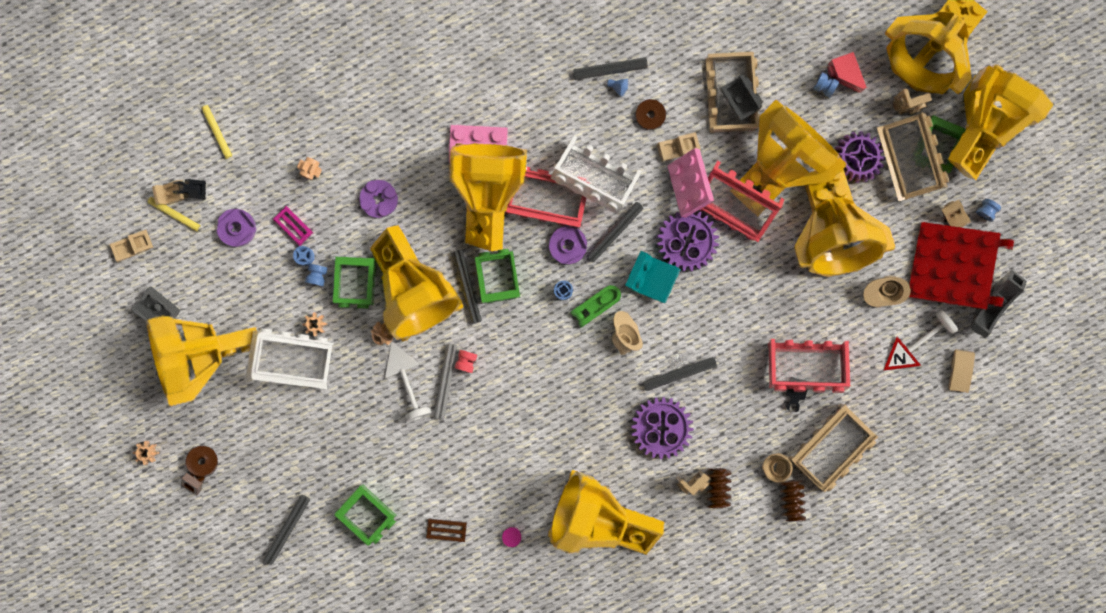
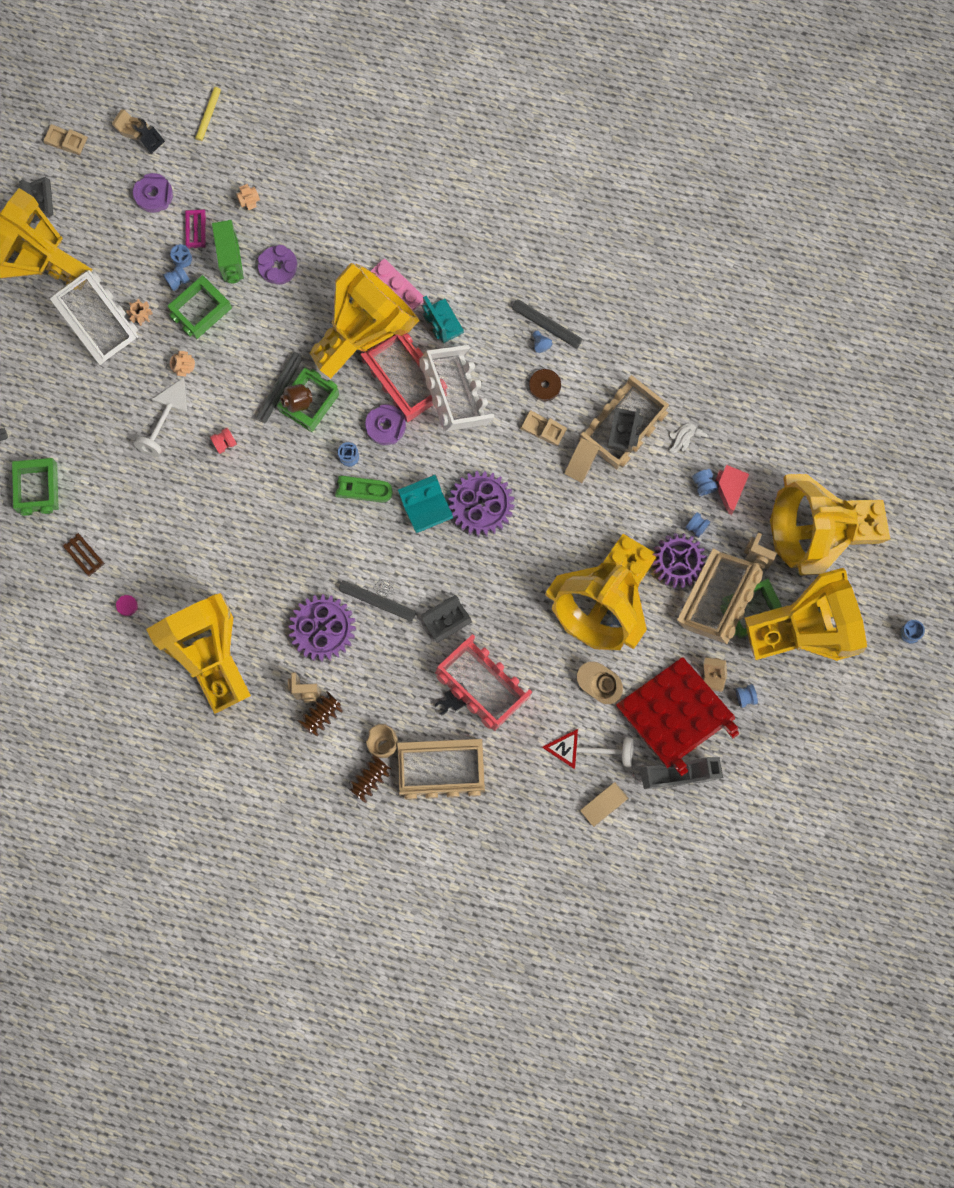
camera: 45 degrees right, 10 degrees down
(174, 214) = (119, 146): light yellow bar -> none
(337, 223) = (228, 251): none -> bright green window
(413, 292) = (235, 337): yellow plate -> none
(445, 381) = (193, 443): light grey axle -> none
(493, 285) = (296, 398): none -> reddish brown head
(535, 132) = (442, 318): none -> teal bracket
(614, 232) = (432, 447): dark grey axle -> none
(626, 333) = (364, 529): tan piece -> none
(690, 183) = (522, 458): bright pink plate -> none
(729, 146) = (582, 460): none -> tan slope
(740, 204) = (545, 506): window -> none
(740, 343) = (446, 618): none -> dark grey bracket
(778, 167) = (625, 493): yellow plate -> none
(779, 64) = (683, 437): none -> white piece
(848, 119) = (697, 525): none -> medium blue wheel
(1060, 60) = (915, 629): none -> medium blue wheel

